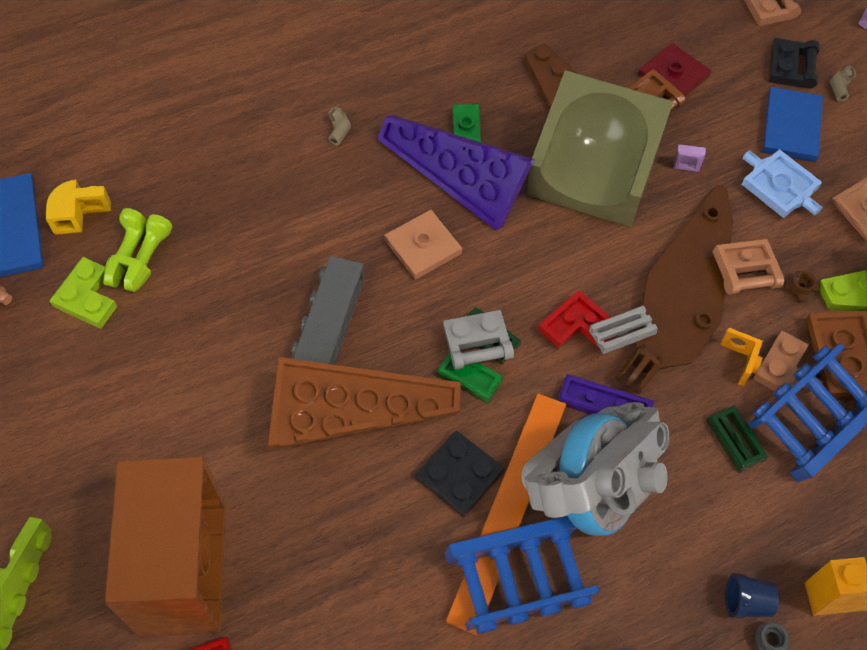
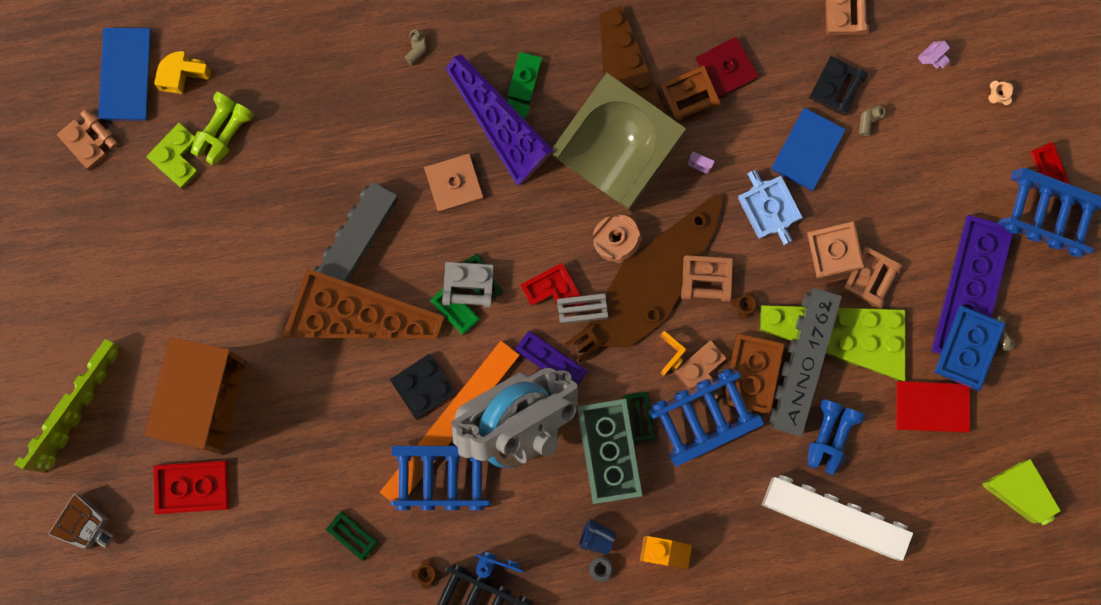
camera: 15 degrees right, 20 degrees up
(634, 262) = (619, 250): none -> nougat plate
(724, 484) = (609, 451): none -> sand green brick

